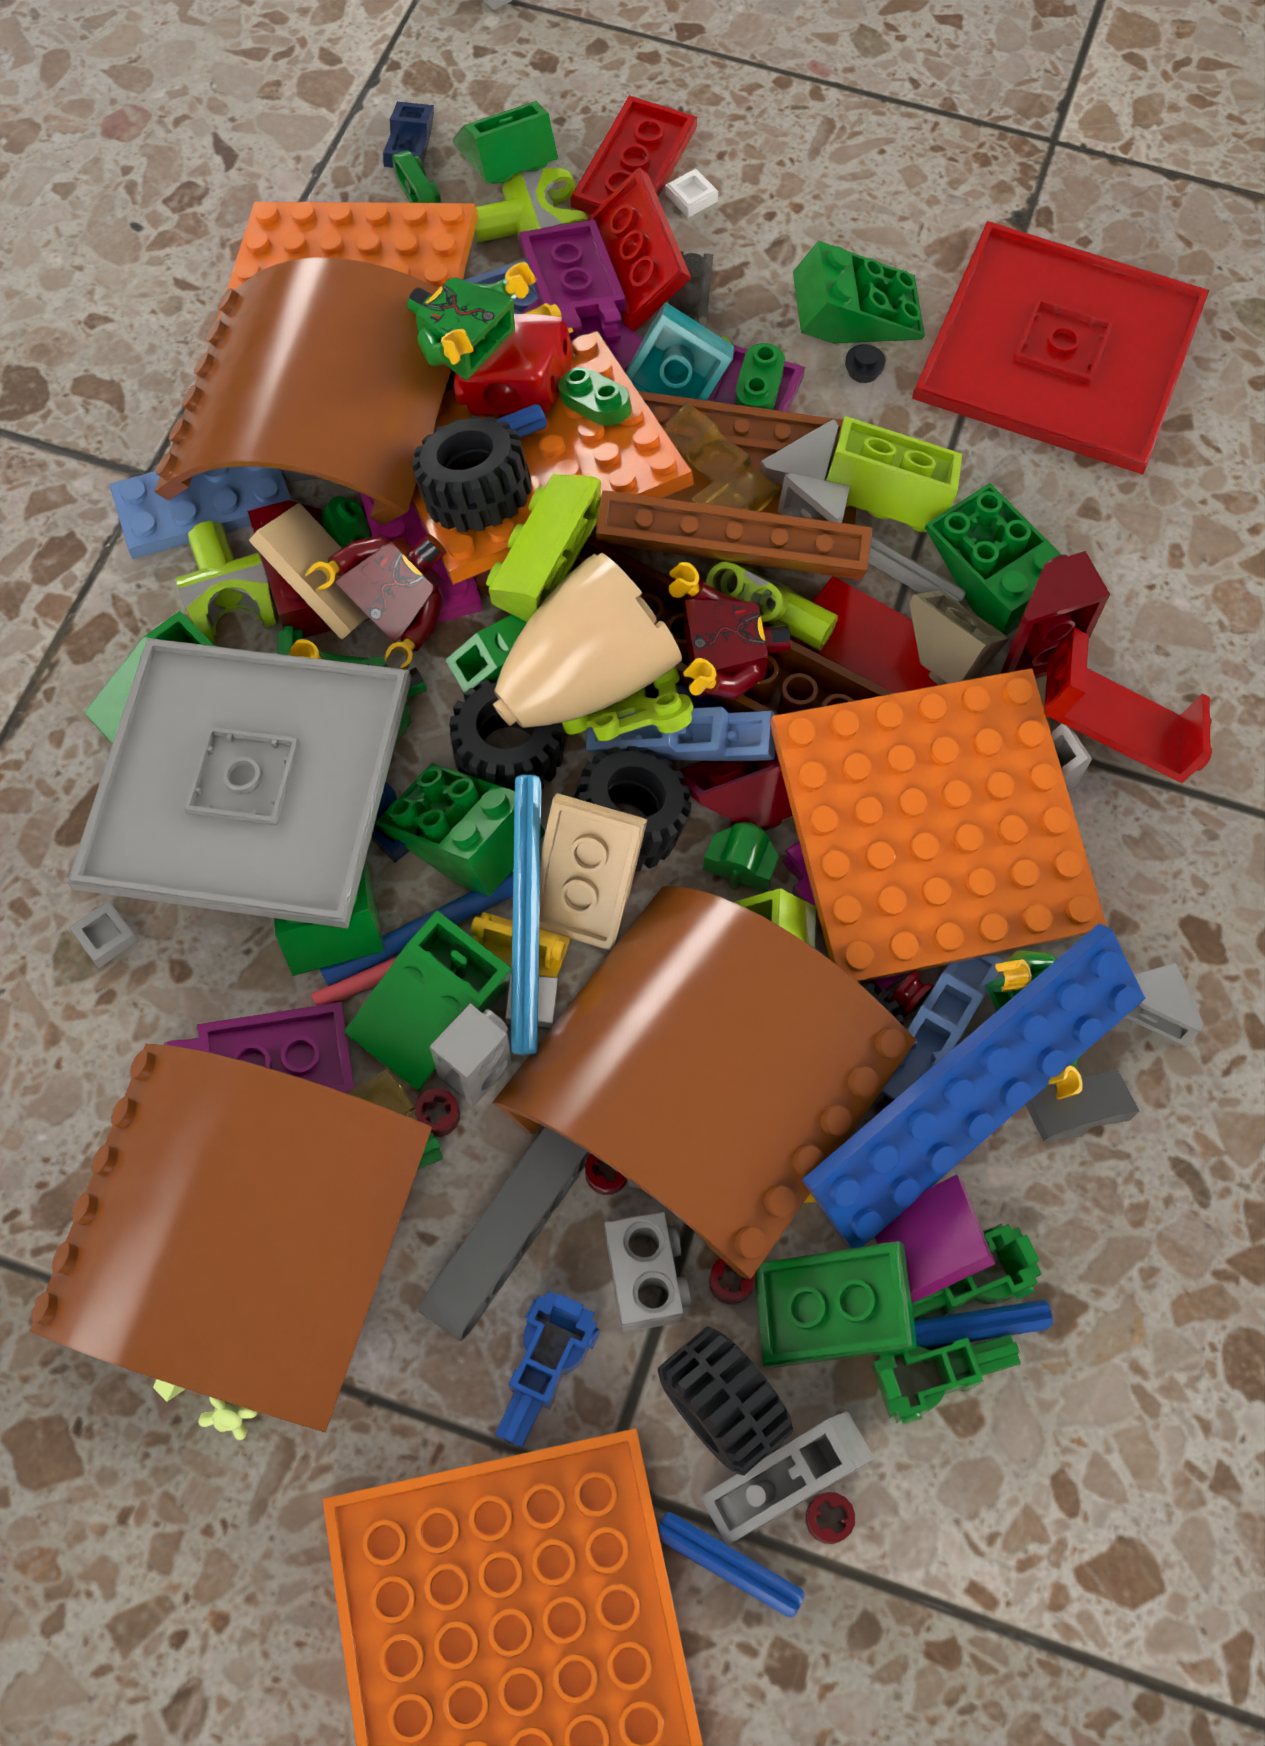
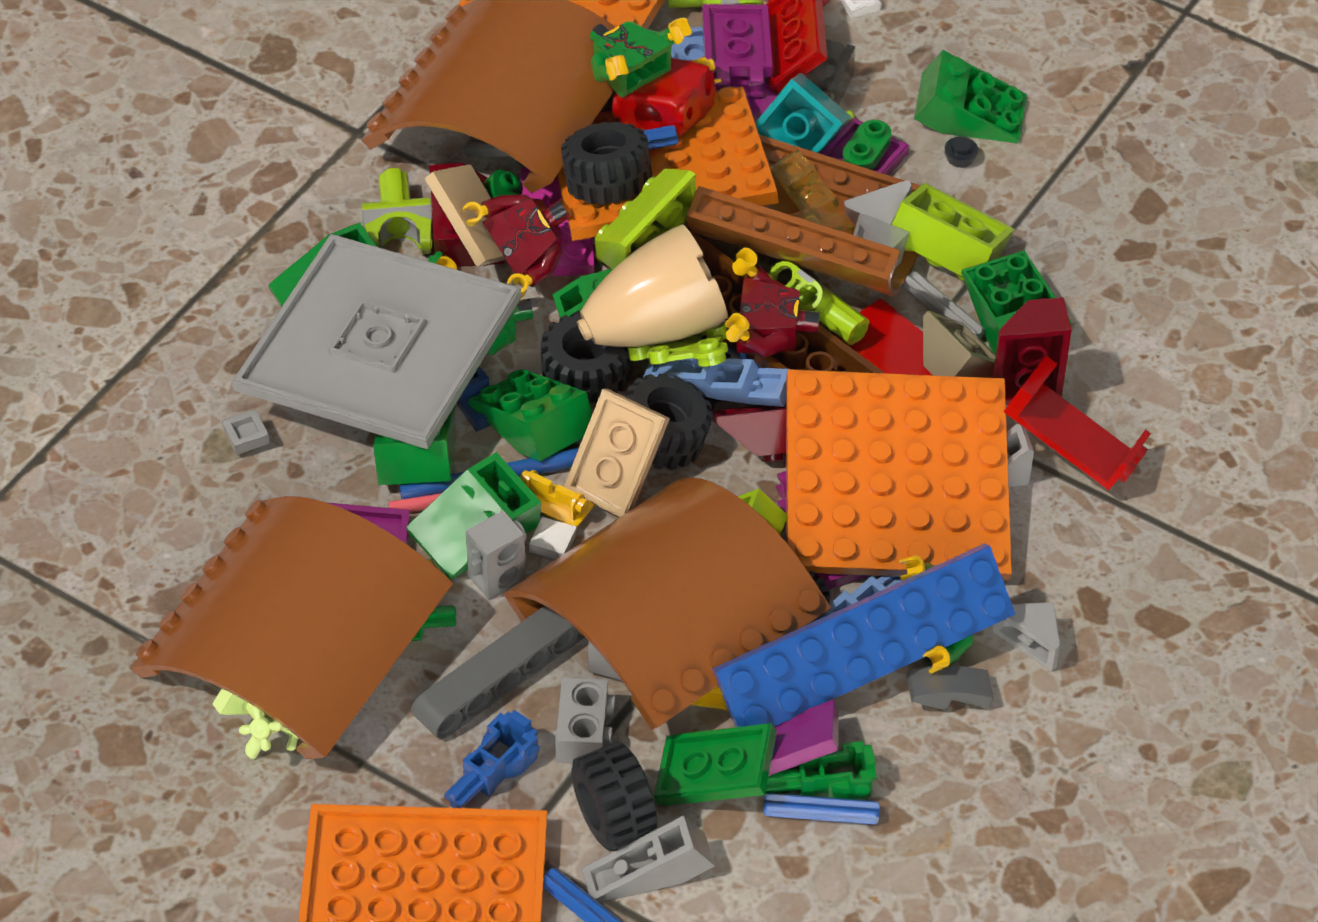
camera: 15 degrees right, 15 degrees down
(215, 495) = (408, 149): medium blue plate -> none
(429, 1100) = (465, 603): dark red bush -> none
(526, 915) = (562, 471): dark azure axle -> none
(595, 396) = (721, 128): green plate -> none
(598, 1182) = (570, 666): dark red bush -> none
(717, 1273) = (647, 754): dark red bush -> none
(743, 856) = (741, 470): green piece -> none
(827, 1535) = (679, 891): dark red bush -> none
(911, 993) = (842, 582): dark red bush -> none
(957, 1364) = (790, 829): green piece -> none
(1062, 346) = (1134, 168): red tile -> none

